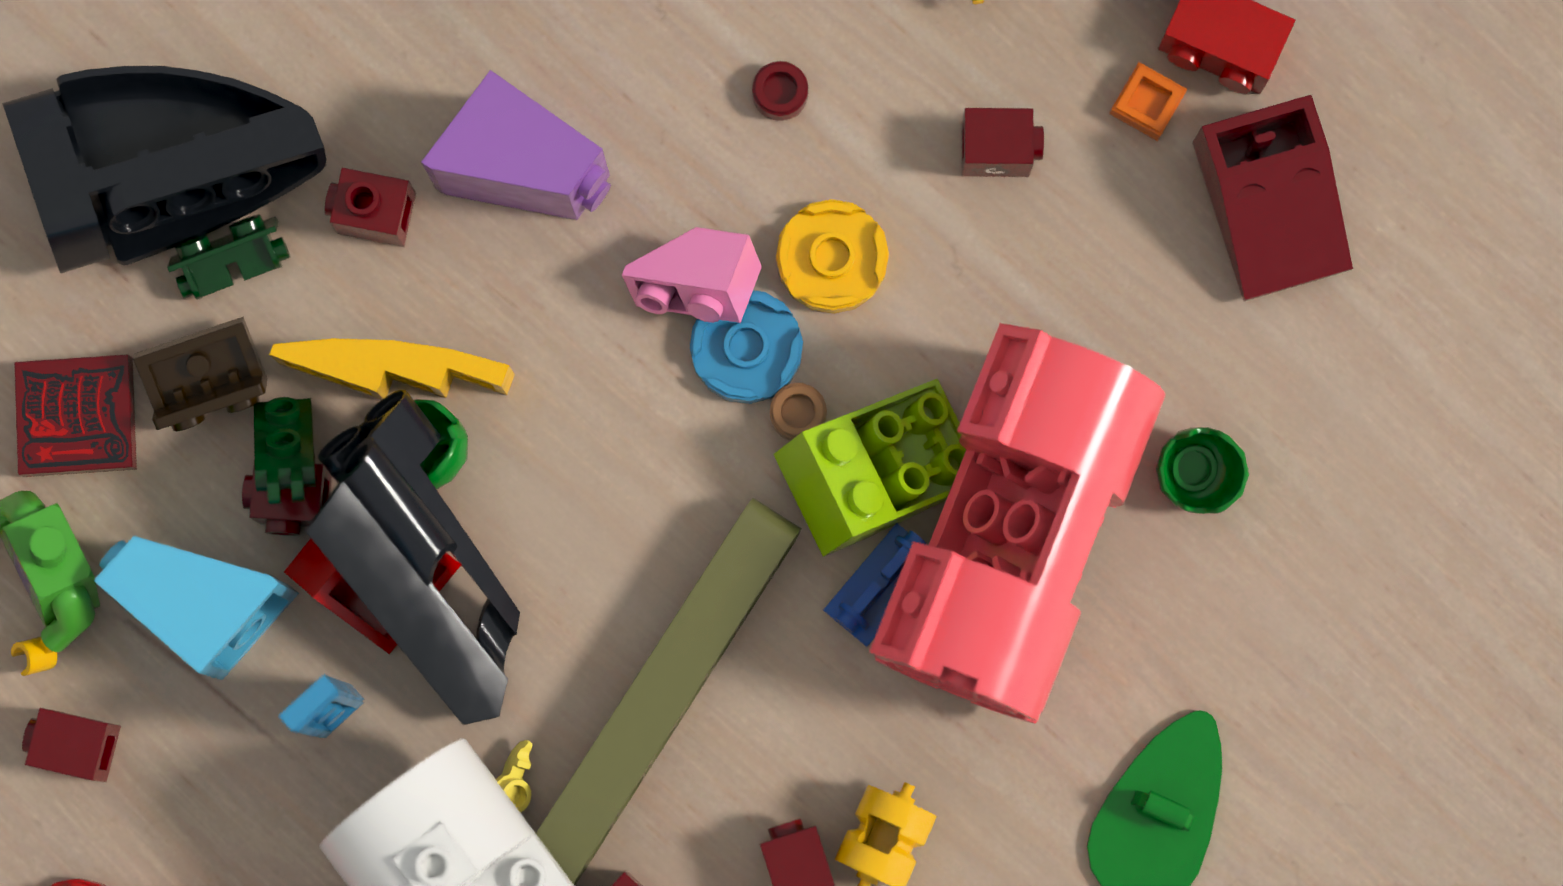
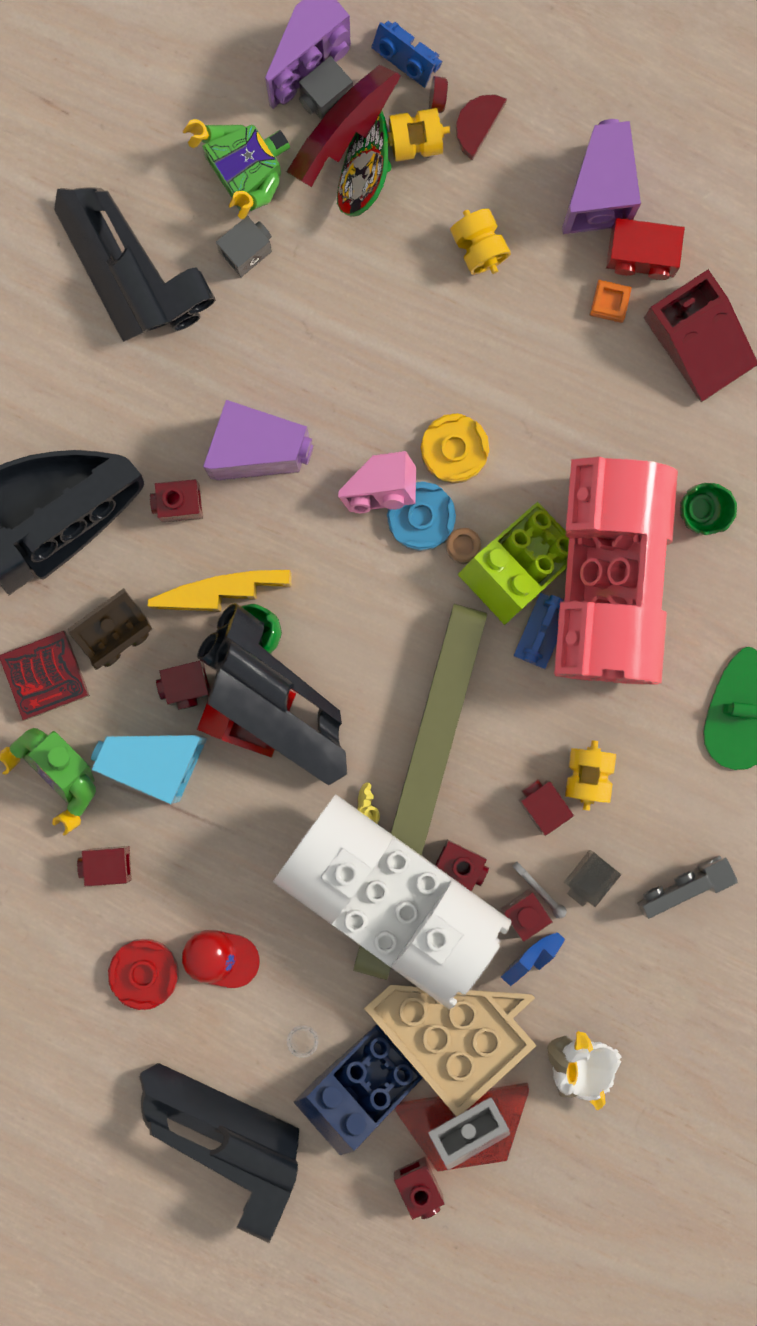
camera: 20 degrees left, 5 degrees up
(206, 261) = (91, 561): dark green hinge -> none
(284, 447) = (174, 658): dark green hinge -> none
(322, 707) = (247, 801): dark azure tile -> none
(780, 90) = (394, 359): dark red tile -> none
(1000, 142) = (532, 351): dark red brick -> none

